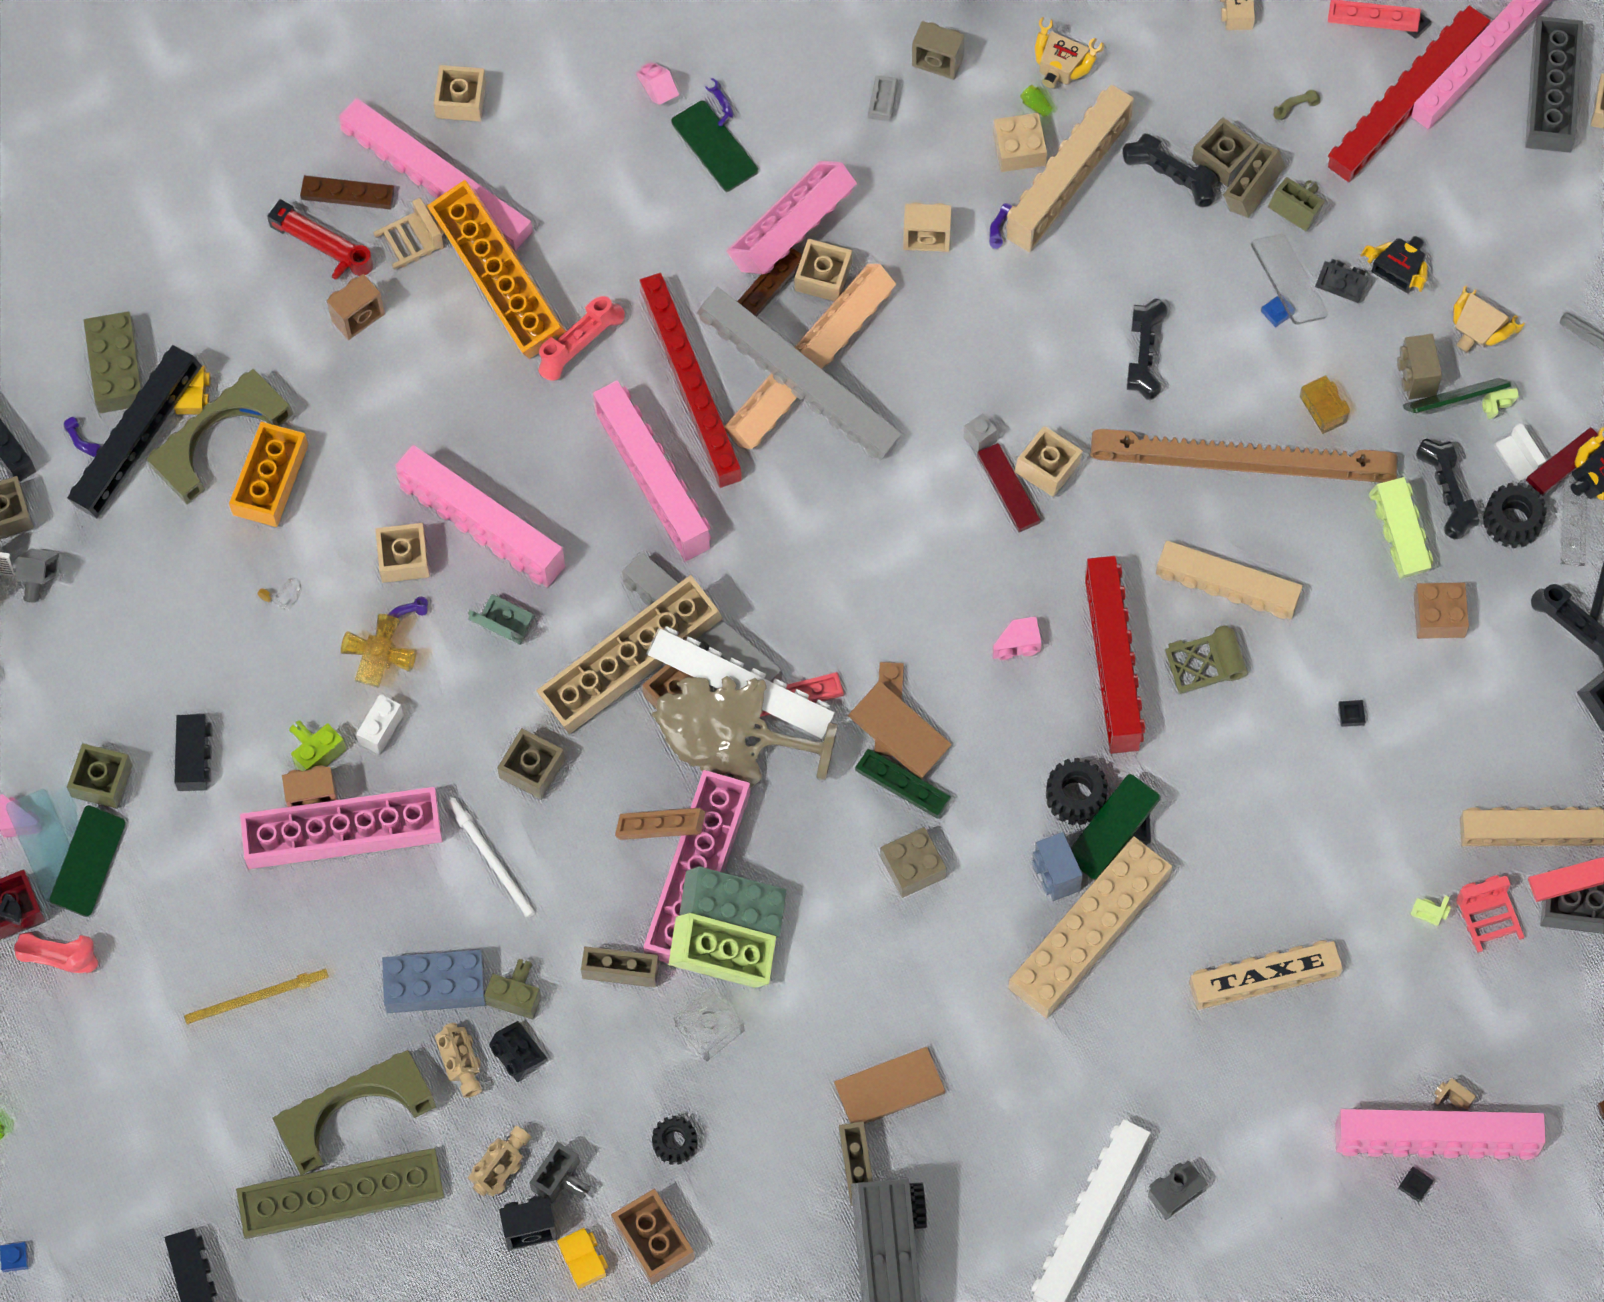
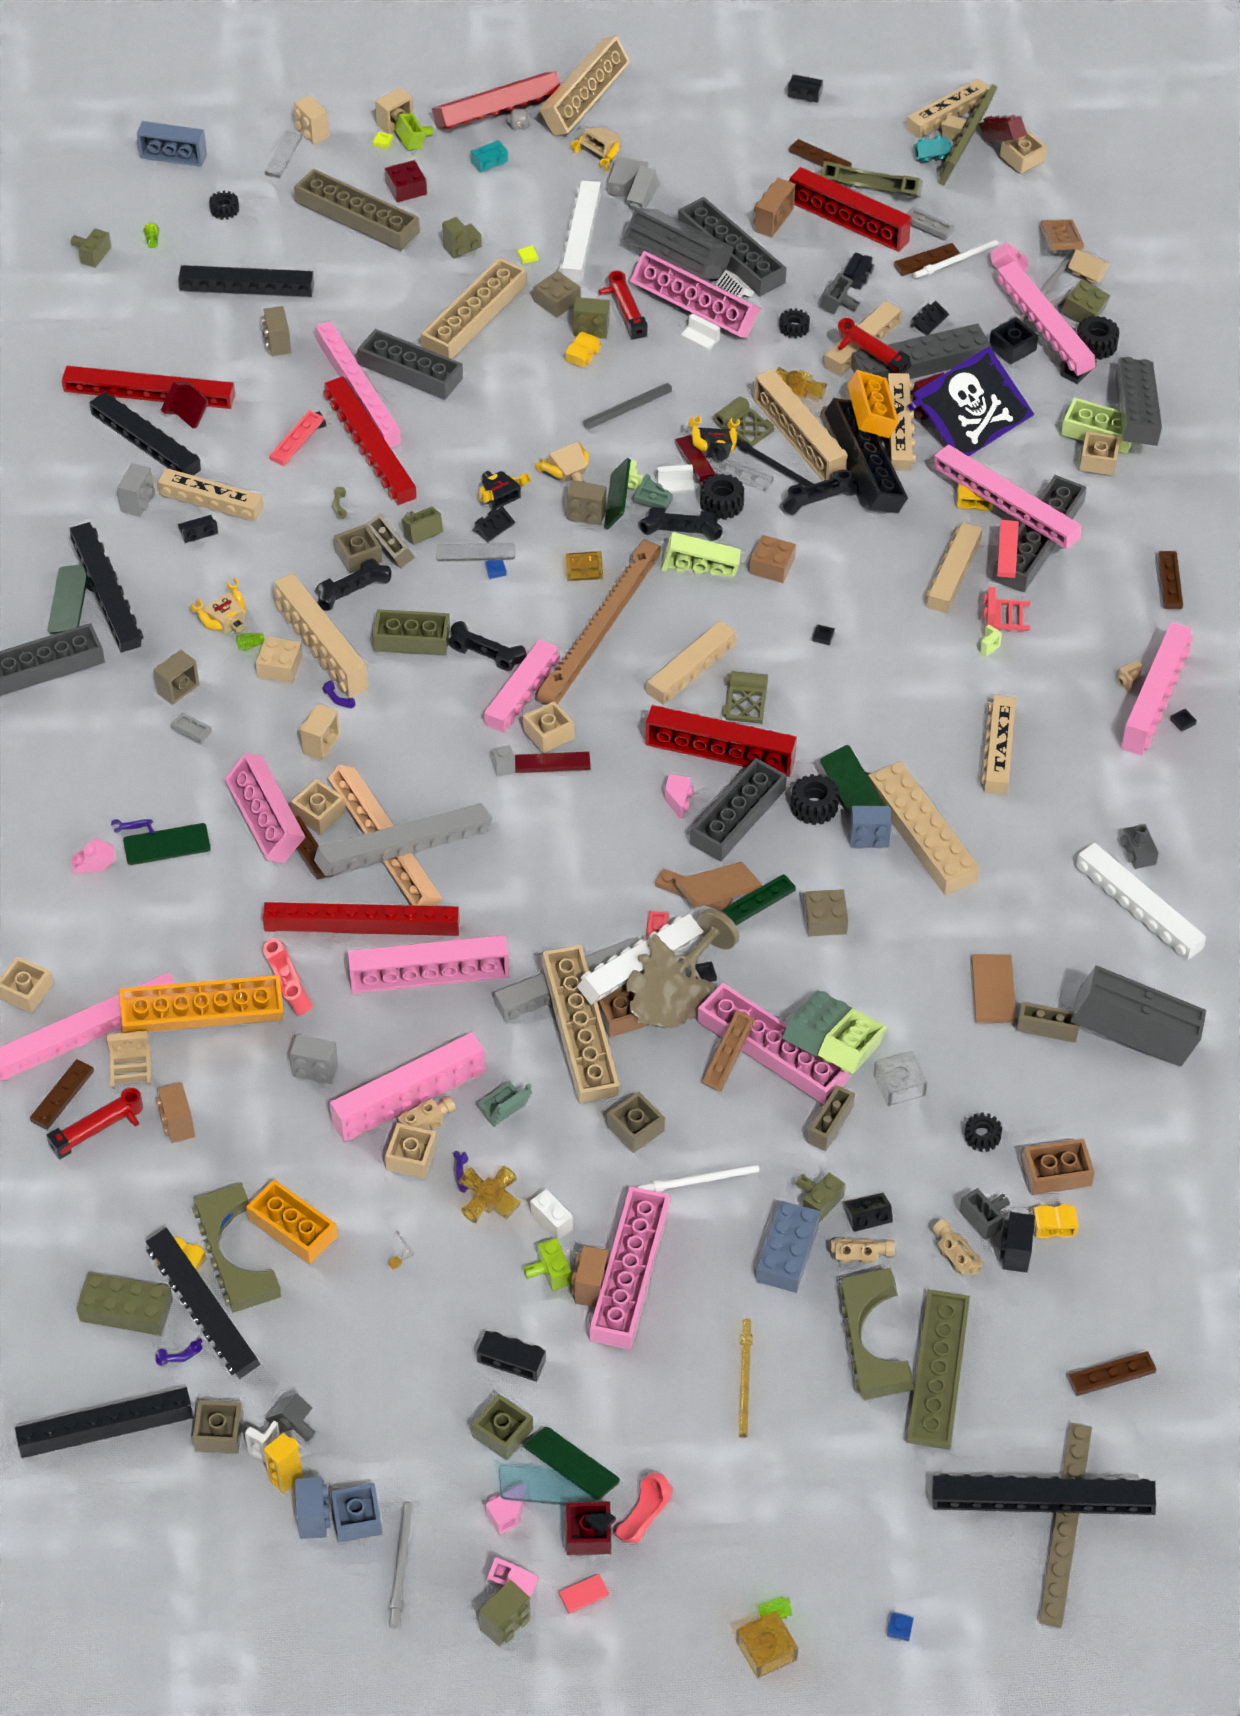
camera: 70 degrees left, 15 degrees down
(448, 549) = (427, 1114): none -> tan brick
(476, 409) = (314, 1059): none -> light grey brick
(776, 763) = (706, 971): none -> black tile
(1021, 711) = (738, 809): none -> dark grey brick
(1104, 409) = (521, 686): none -> bright pink brick
(1124, 260) = (411, 632): none -> olive brick
(1483, 436) = (652, 494): none -> sand green wing

